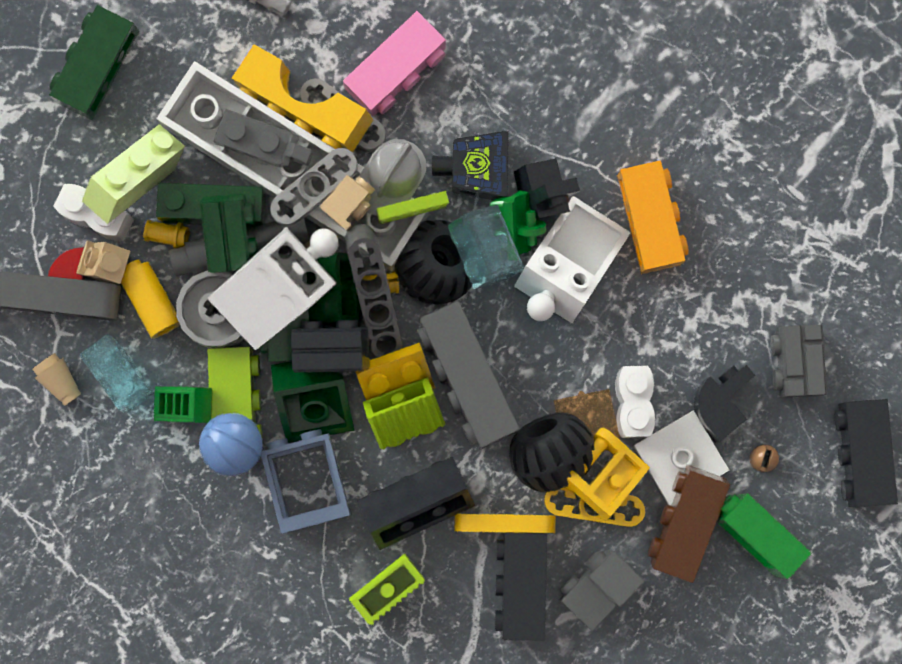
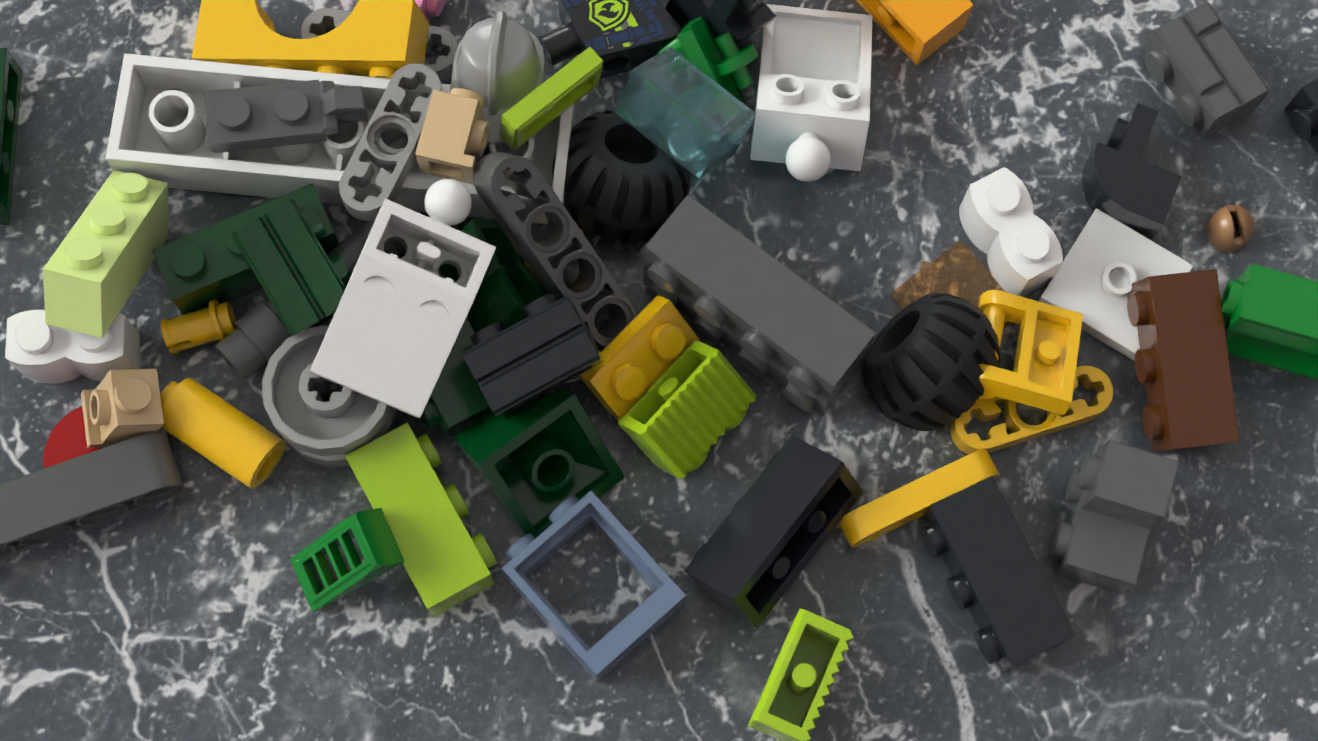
camera: 30 degrees left, 10 degrees down
(57, 379) = (131, 620): tan cone -> none
(116, 373) = (222, 564): clear light blue brick -> none
(230, 444) = (453, 569): medium blue piece -> none

